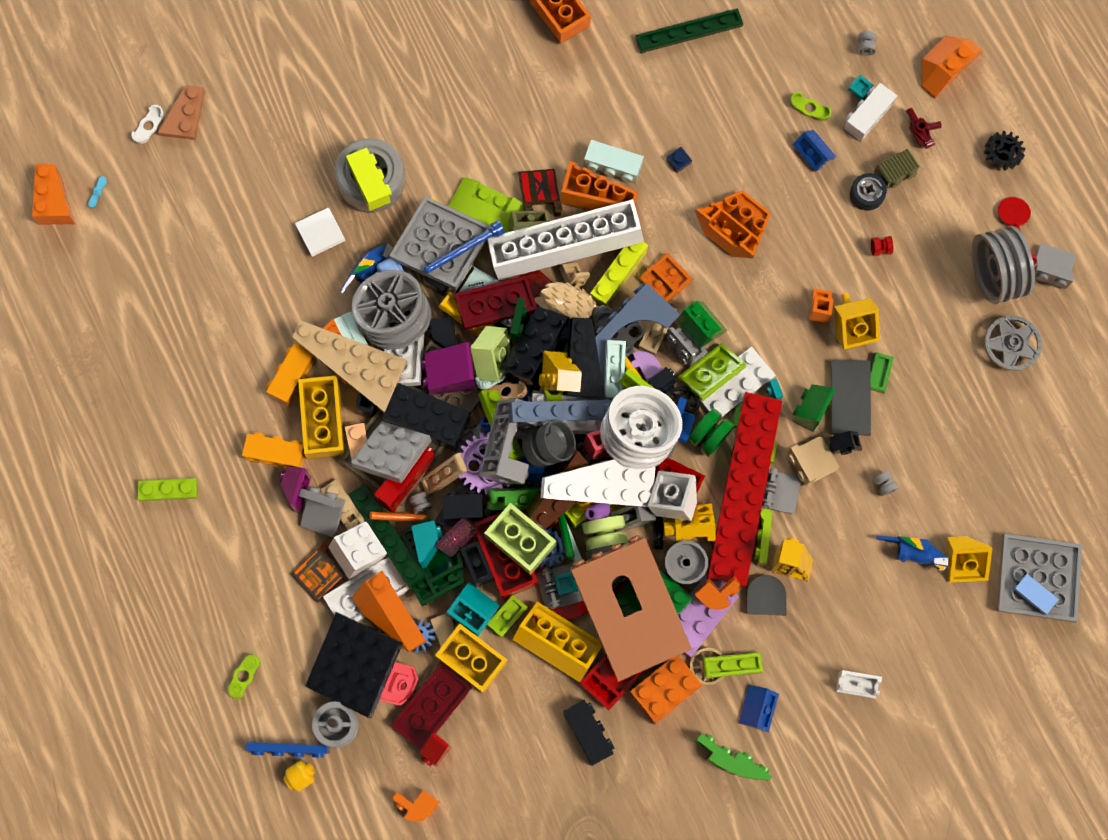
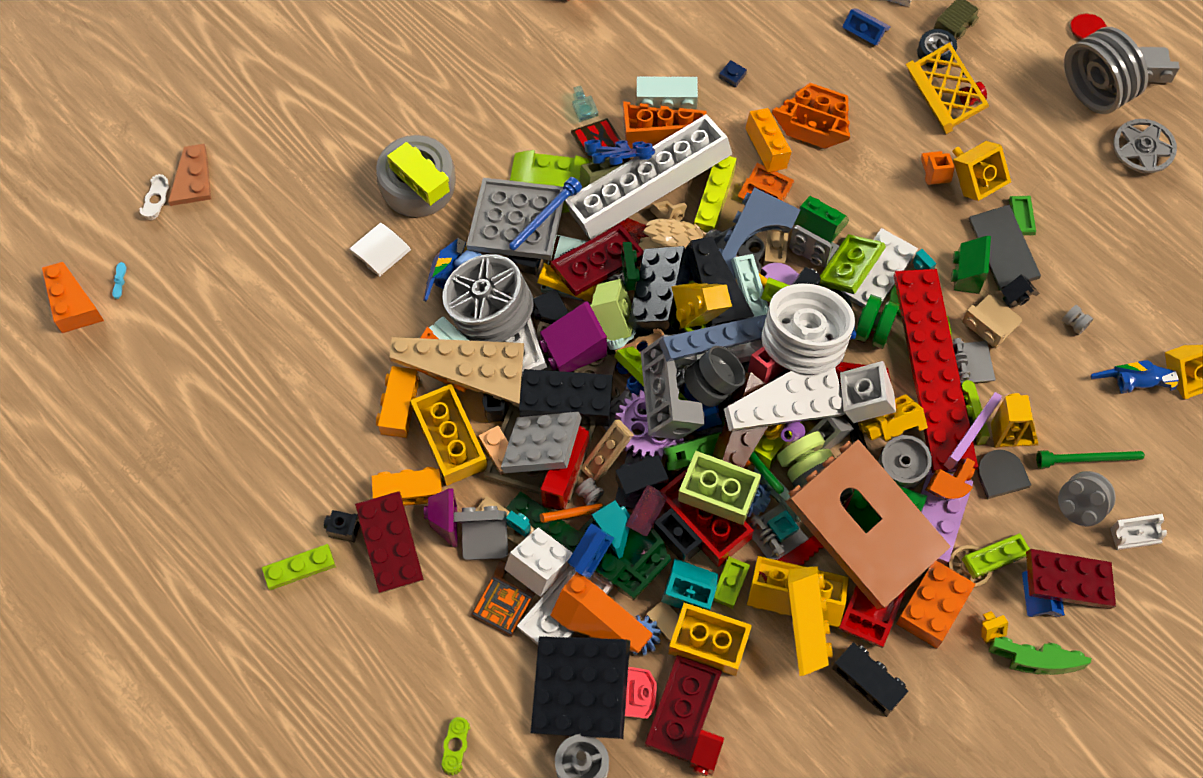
camera: 15 degrees left, 10 degrees down
(218, 469) = (347, 531): none -> black brick
(244, 493) = (389, 542): none -> dark red plate
(352, 512) = (519, 523): none -> teal plate
(399, 556) = (590, 550): none -> blue panel
(538, 151) = (583, 106): none -> clear light blue plate
(552, 671) = (808, 619): none -> yellow slope
(565, 217) = (621, 151): none -> blue plant
(683, 235) = (768, 140): none -> light orange brick
(704, 723) = (993, 627): none -> yellow tile
(751, 556) = (973, 431): none -> lavender tile
(783, 705) = (1070, 579): none -> dark red plate
(808, 596) = (1046, 459): none -> green piece
(824, 643) = (1086, 498): none -> light grey wheel
(844, 239) = (934, 100): none -> yellow fence

